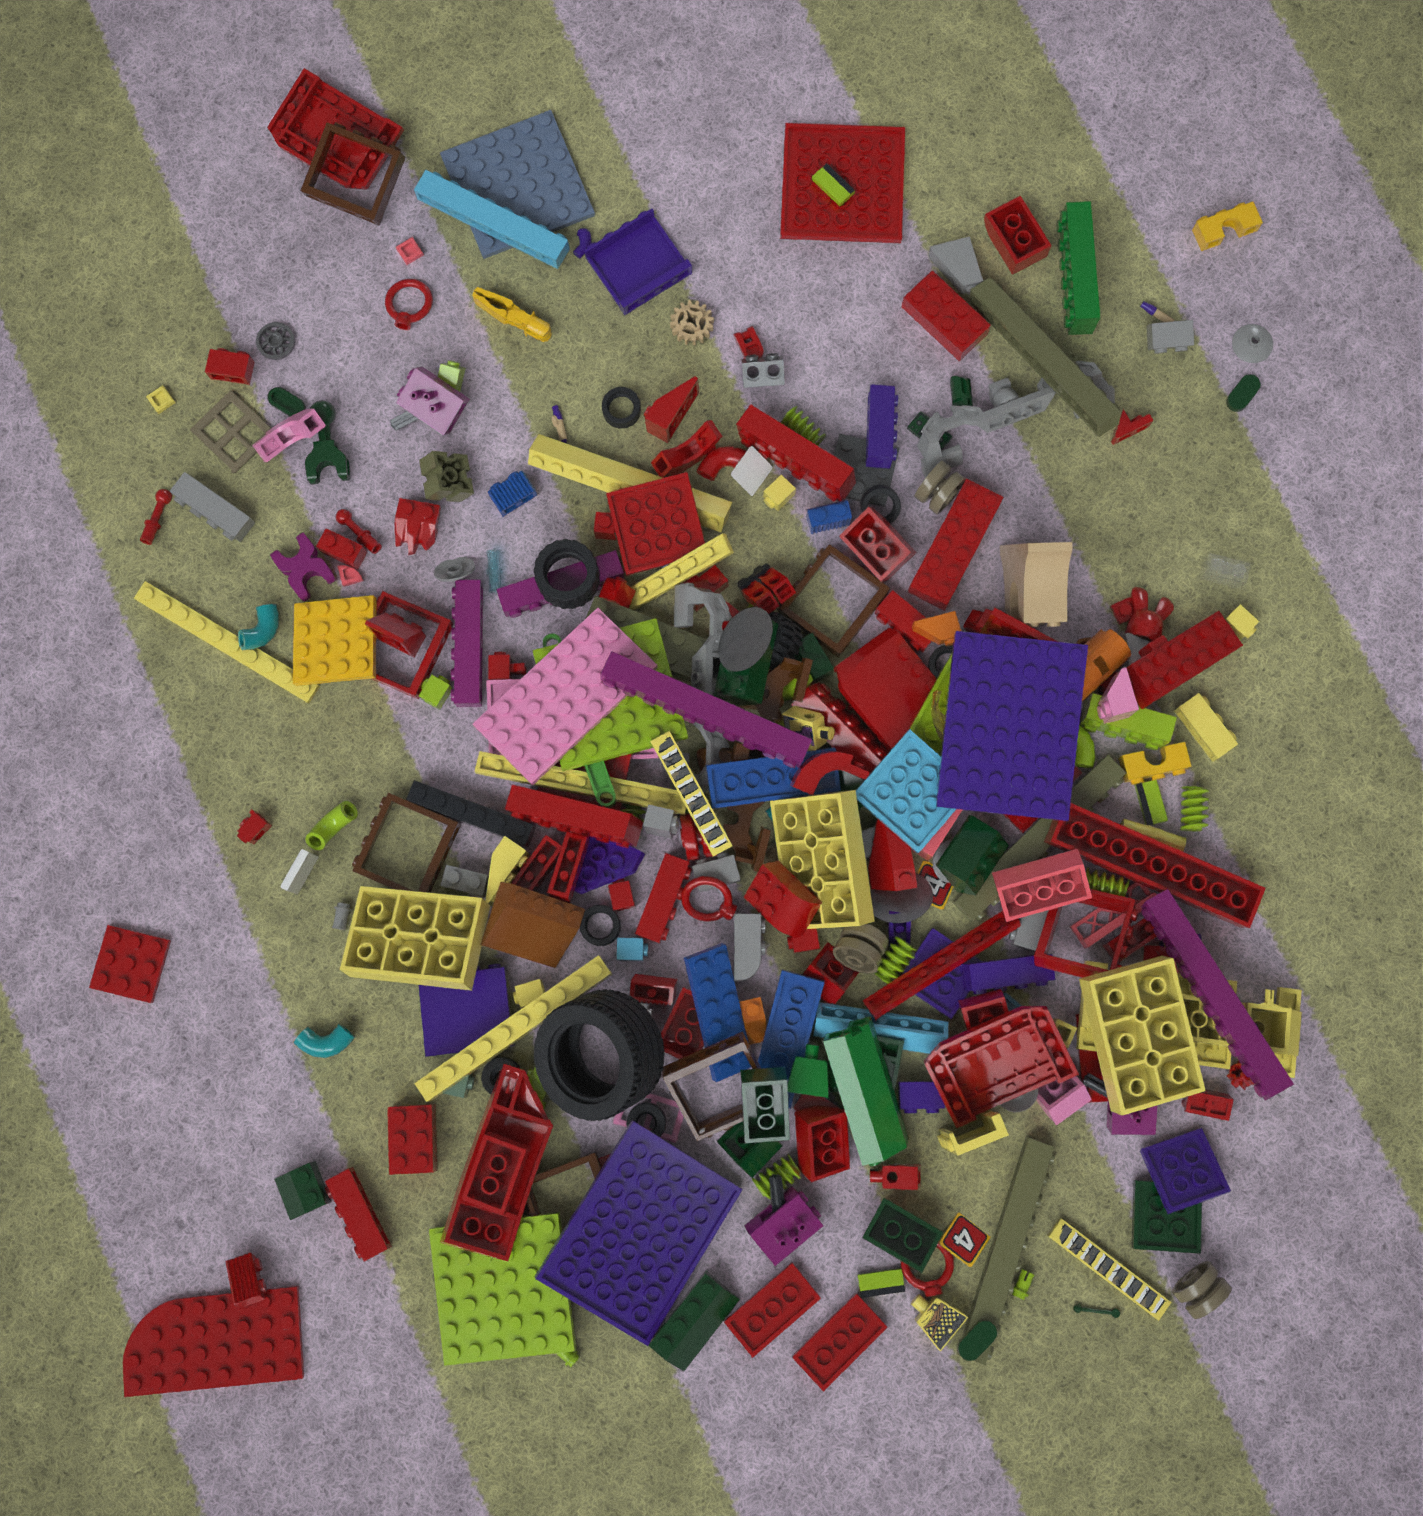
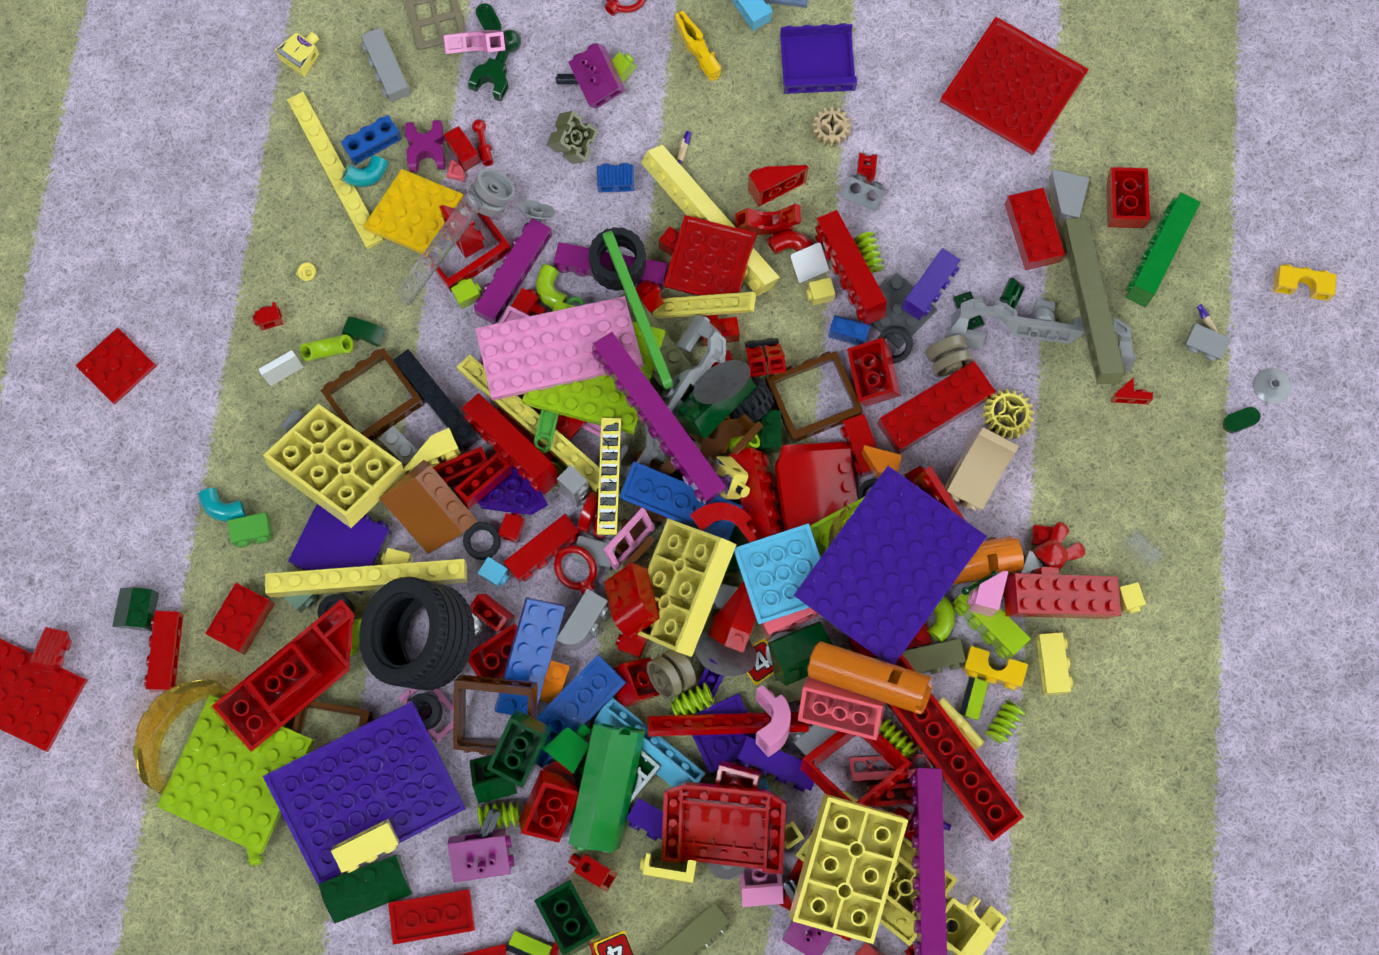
camera: 25 degrees right, 5 degrees down
(116, 543) = (299, 52): none -> light yellow torso
(163, 498) = (333, 54): red pin -> none
(248, 601) = (368, 148): none -> blue brick
(262, 760) = (306, 271): none -> light yellow plate
(357, 786) = (363, 330): none -> dark green slope
(368, 1047) = (250, 530): none -> bright green brick
(388, 663) = (439, 247): none -> clear tile
(393, 1284) = (158, 720): none -> clear yellow windscreen
(399, 578) = (494, 192): none -> light grey wheel
(416, 524) = (529, 161): red plate -> none
(494, 571) = (566, 228): clear light blue pin -> none
(510, 642) = (546, 288): none -> lime cylinder
(585, 240) = (788, 19): dark purple arm -> none
(620, 614) = (637, 309): none -> bright green beam
(621, 423) = (738, 173): black tyre -> none
(671, 1283) = (365, 846): none -> light yellow brick
(739, 839) = (625, 533): none -> bright pink window
(833, 185) = (1004, 82): lime tile -> none
(995, 950) = (775, 734): none -> bright pink arch
(1032, 516) = (1004, 399): none -> light yellow gear
(1054, 843) = (870, 677): none -> orange piece
(1091, 706) = (965, 590): none -> dark green hinge

